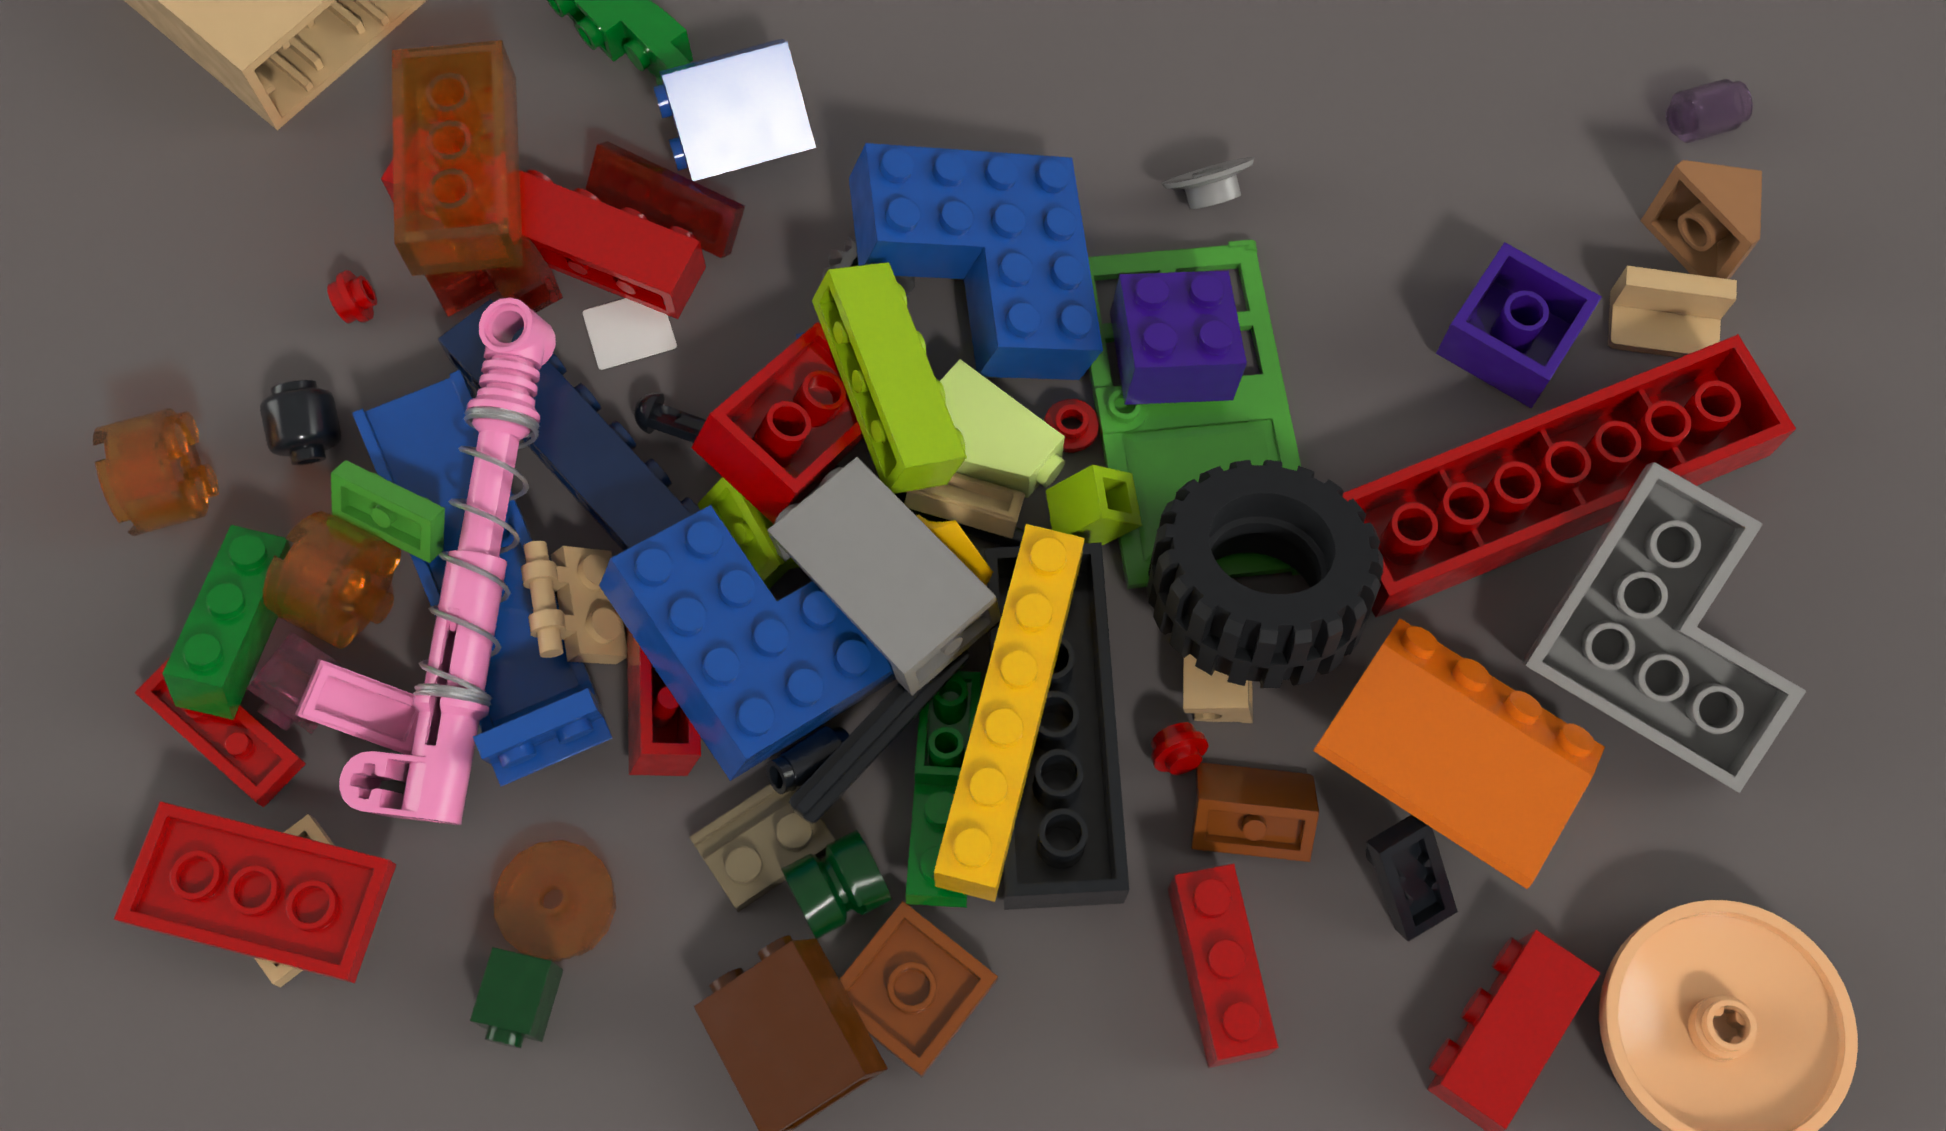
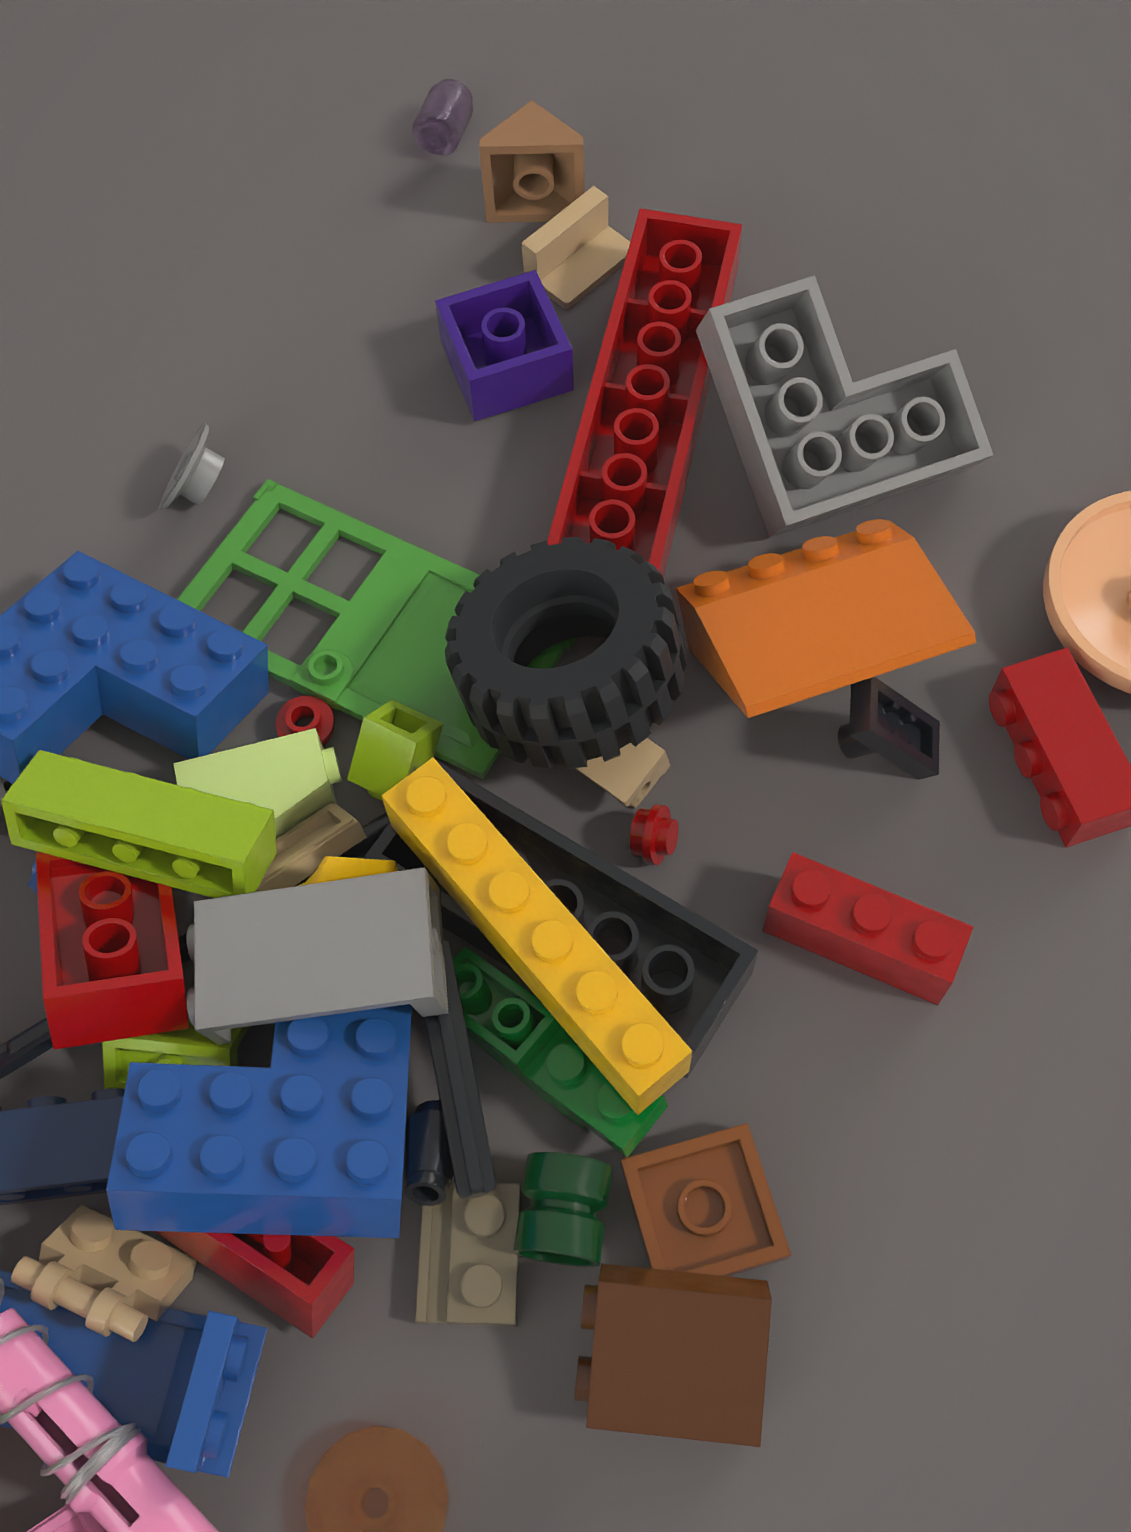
camera: 50 degrees left, 5 degrees down
(1177, 337) = (305, 581): dark purple brick -> none
(1254, 812) = (750, 813): dark orange panel -> none

